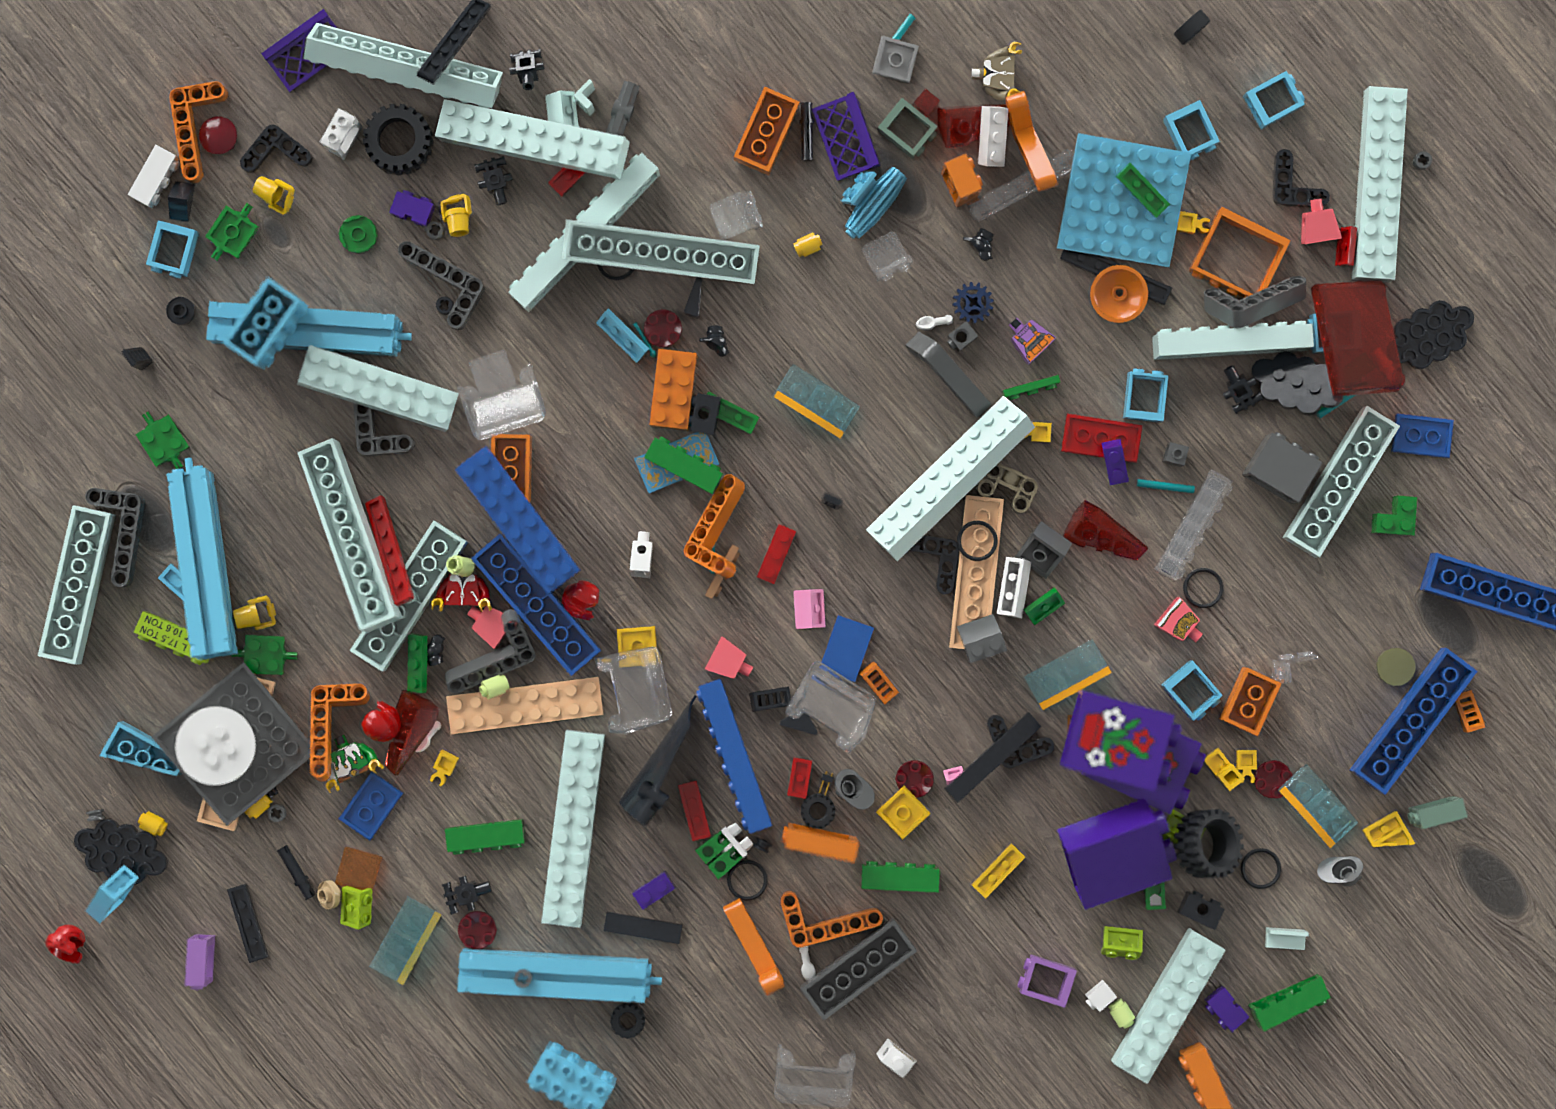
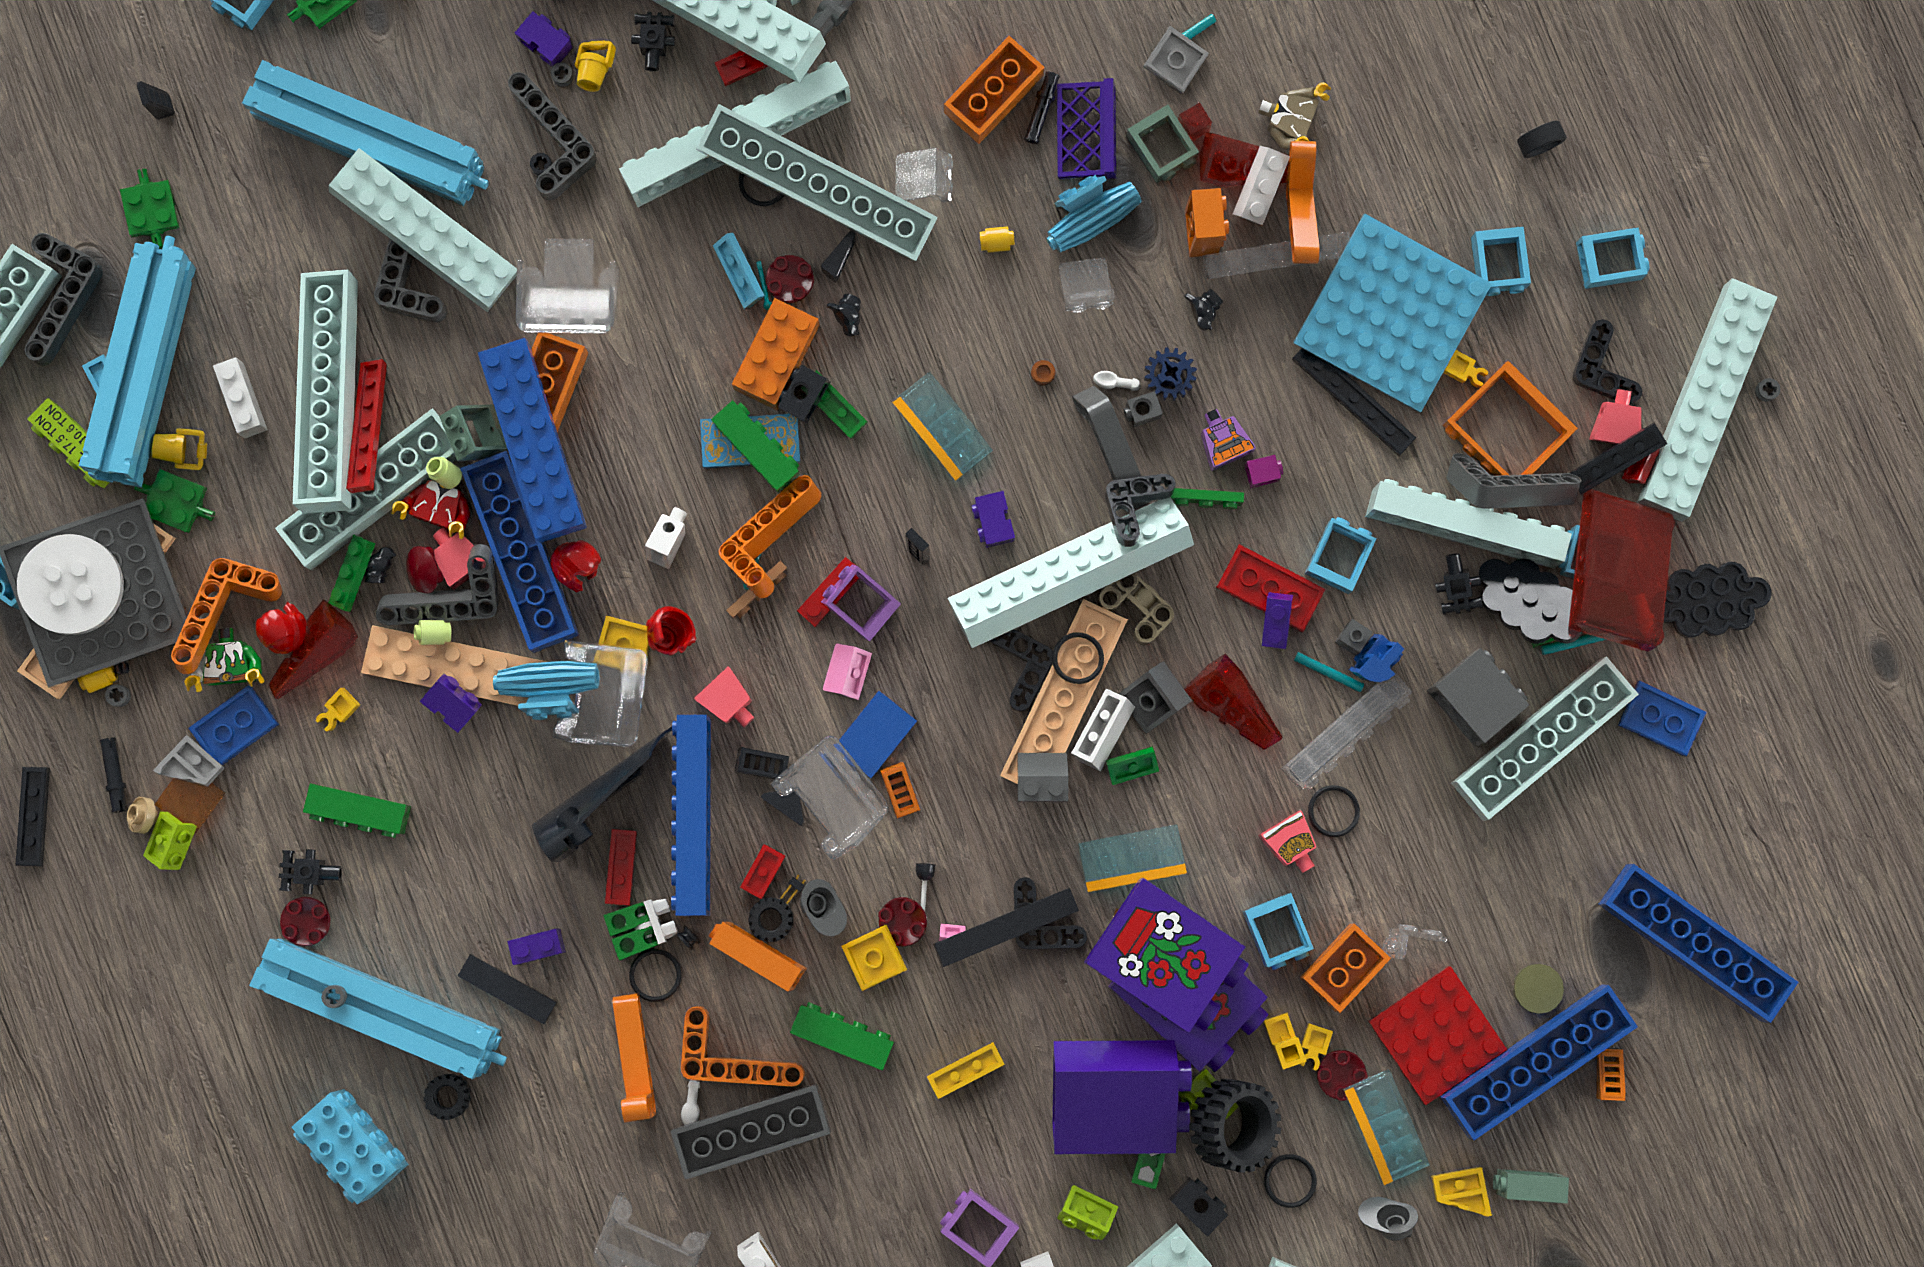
camera: 20 degrees right, 5 degrees down
(180, 311) = (227, 64): black plate -> none
(266, 324) = (315, 103): medium azure brick -> none
(285, 561) = (240, 397): none -> white brick
(350, 845) = (189, 764): none -> light grey wing
(358, 234) = (470, 48): green tile -> none
(405, 940) = (213, 904): clear light blue slope -> none
(426, 742) = (328, 671): white piece -> none
(469, 642) = (423, 569): none -> dark red dish
(472, 513) = (483, 418): none -> sand green window
(527, 733) = (451, 702): none -> dark purple brick
(573, 828) = (465, 838): light aqua brick -> none
(594, 697) = (547, 686): none -> medium azure plate
(669, 625) = (670, 631): none -> red helmet
(819, 561) = (879, 617): none -> medium lavender window
(877, 334) = (1043, 372): none -> dark orange tile
(880, 462) = (994, 527): none -> dark purple brick
(918, 737) = (924, 872): none -> black hinge
(973, 413) = (1125, 502): none -> black beam
(1041, 432) = (1198, 555): yellow plate -> none
(1067, 352) = (1263, 471): none -> magenta brick
(1115, 307) = (1331, 419): orange dish -> none
(1142, 190) = (1419, 306): green plate -> none
(1198, 466) = (1377, 659): none -> blue brick
(1328, 251) = (1619, 457): none -> black tile
(1333, 726) = (1437, 1035): none -> red plate
(1400, 521) = (1599, 812): green brick -> none

